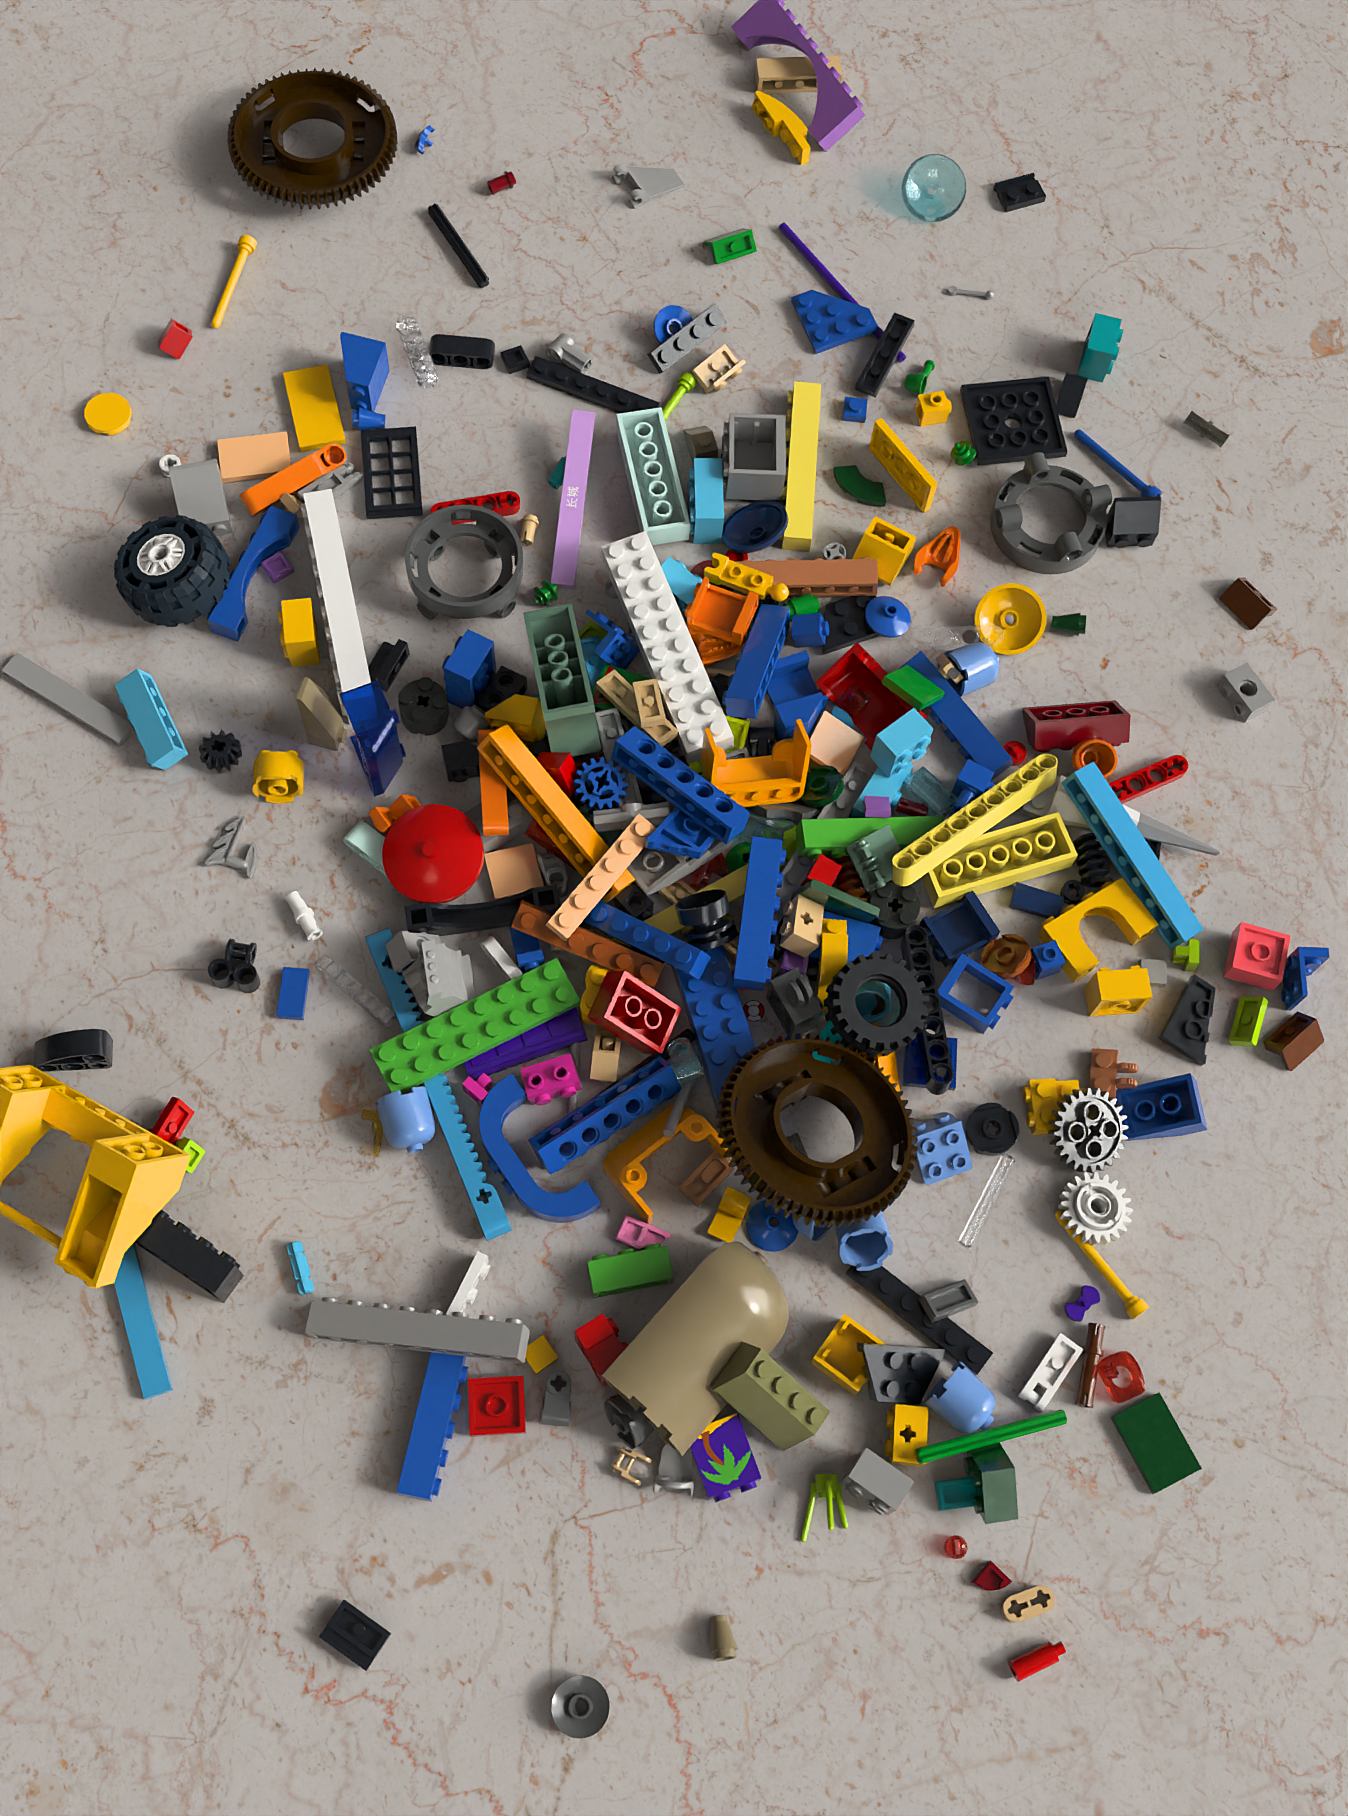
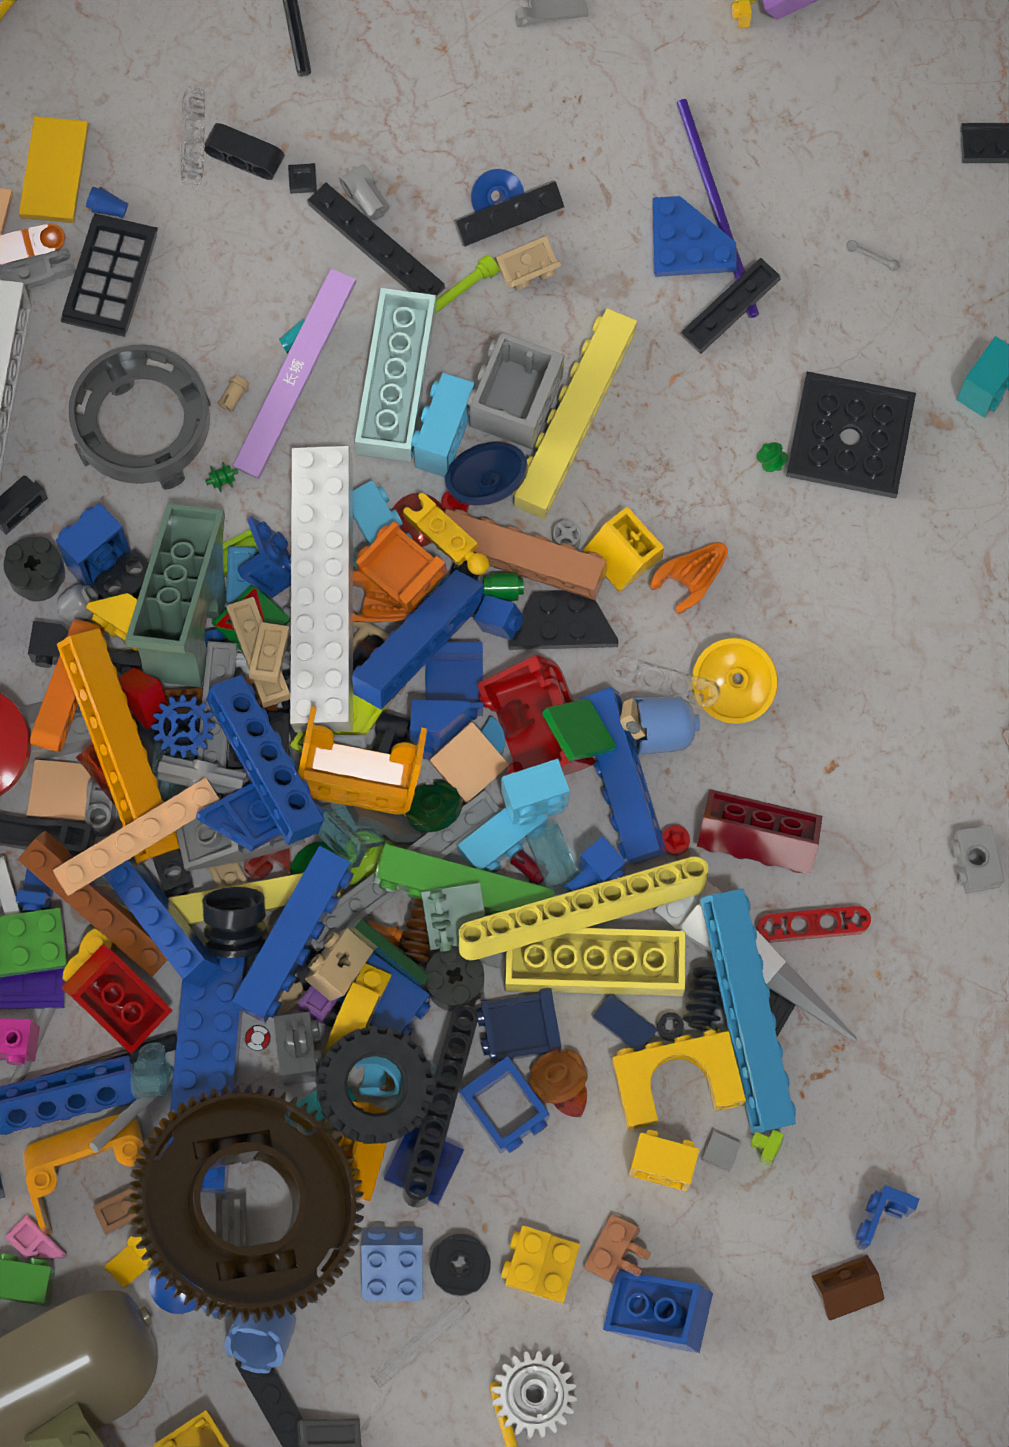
camera: 25 degrees right, 5 degrees up
(365, 369) = (119, 145): blue slope -> none
(501, 497) = (187, 343): red beam -> none
(605, 1056) = (72, 1035): tan slope -> none
(701, 442) = (470, 351): dark tan slope -> none
(731, 245) = (609, 109): green panel -> none
(823, 870) = (386, 913): red brick -> none
(854, 409) = (670, 361): blue plate -> none
(859, 487) = (634, 460): dark green tile -> none
(877, 806) = (480, 855): medium lavender tile -> none
(885, 623) = (590, 640): blue dish -> none
(902, 465) = (689, 452): yellow tile -> none
(917, 382) = (758, 351): green bar -> none
(932, 408) = (760, 390): yellow brick -> none
(944, 177) = (858, 107): clear light blue dish -> none
(1047, 959) = (602, 1095): blue brick -> none
(1069, 549) = (838, 619): dark grey piece -> none
(1070, 623) = (808, 707): dark green cone -> none
(1071, 394) = (934, 422): black panel -> none
(1088, 1130) = (574, 1327): gear -> none
(1095, 751) = (760, 882): orange piece -> none
(1133, 521) = (933, 609): black slope -> none
(1146, 491) = (974, 575): blue piece -> none
(1189, 1020) = (738, 1221): black wing -> none
(1248, 1021) = (803, 1246): lime plate -> none
(1257, 956) = (844, 1176): coral container -> none

